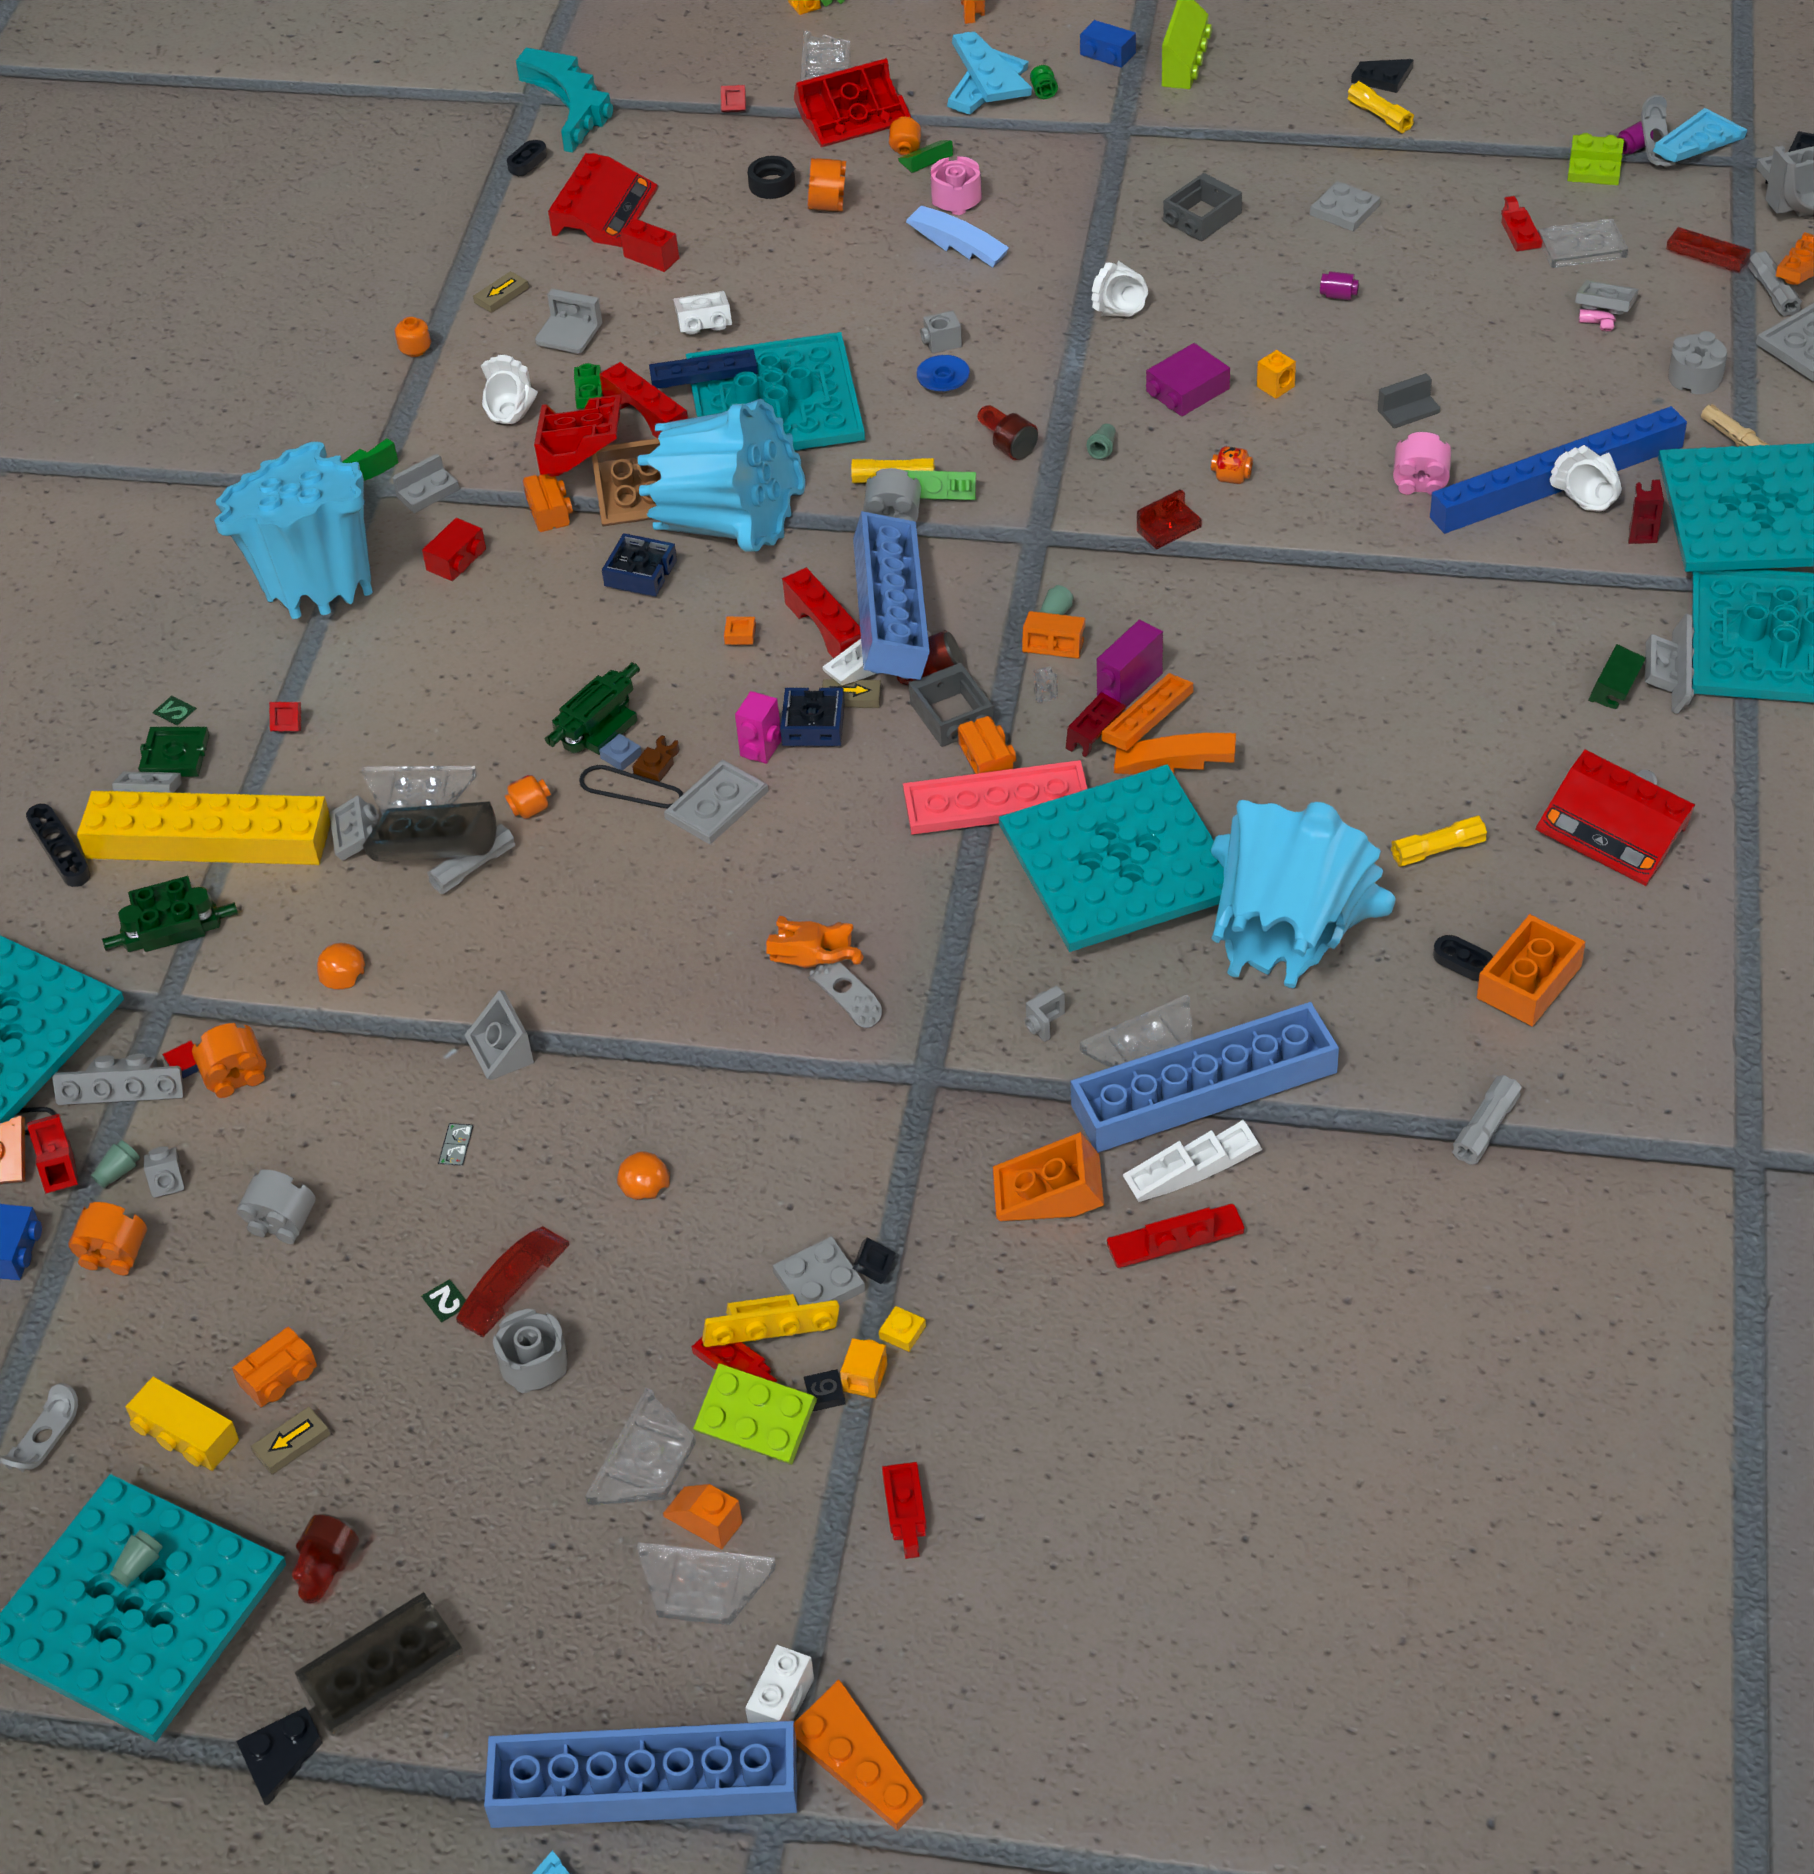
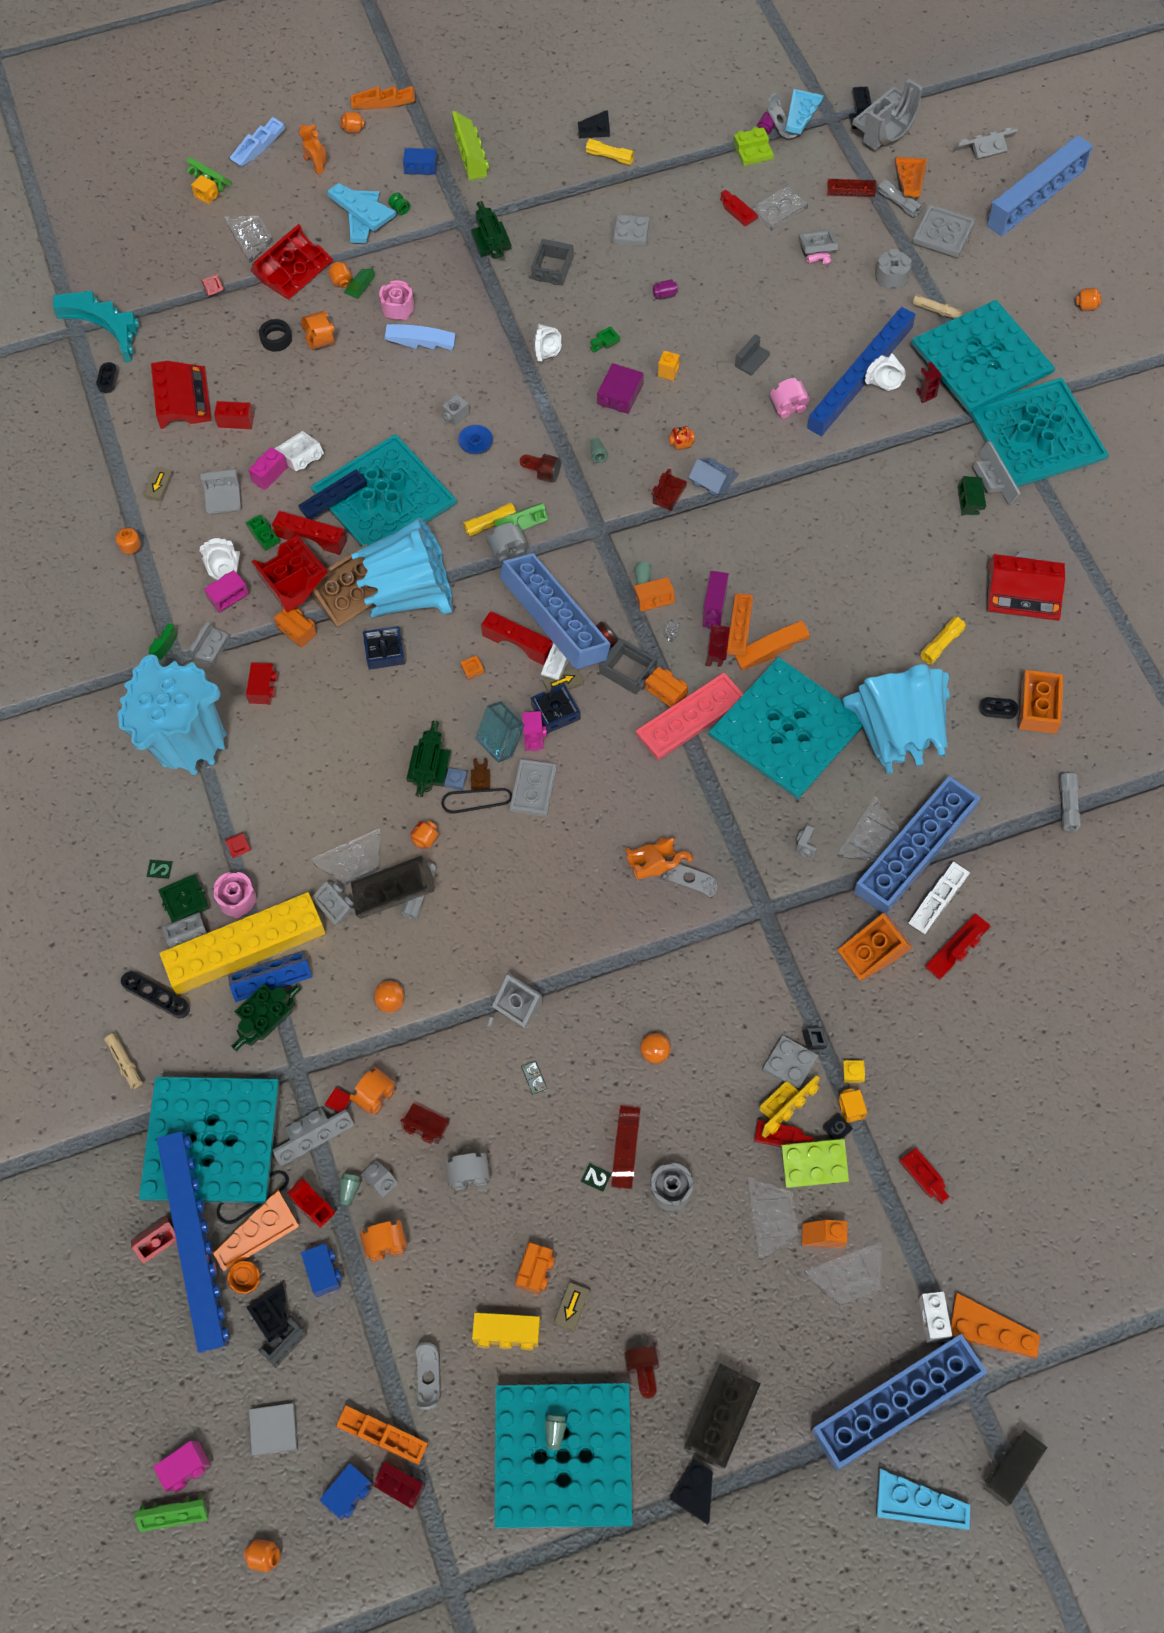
camera: 30 degrees left, 15 degrees up
(221, 881) = (272, 974): none -> blue fence
(236, 765) = (234, 894): none -> bright pink brick
(270, 1134) = (424, 1123): none -> clear red bracket
(489, 431) = (226, 591): none -> dark pink brick
(647, 316) = (267, 468): none -> dark pink brick
(710, 708) = (499, 731): none -> clear light blue brick
(1138, 151) = (490, 234): none -> dark green piece
(1211, 316) = (605, 337): none -> green plate
(1242, 522) = (712, 475): none -> sand blue slope

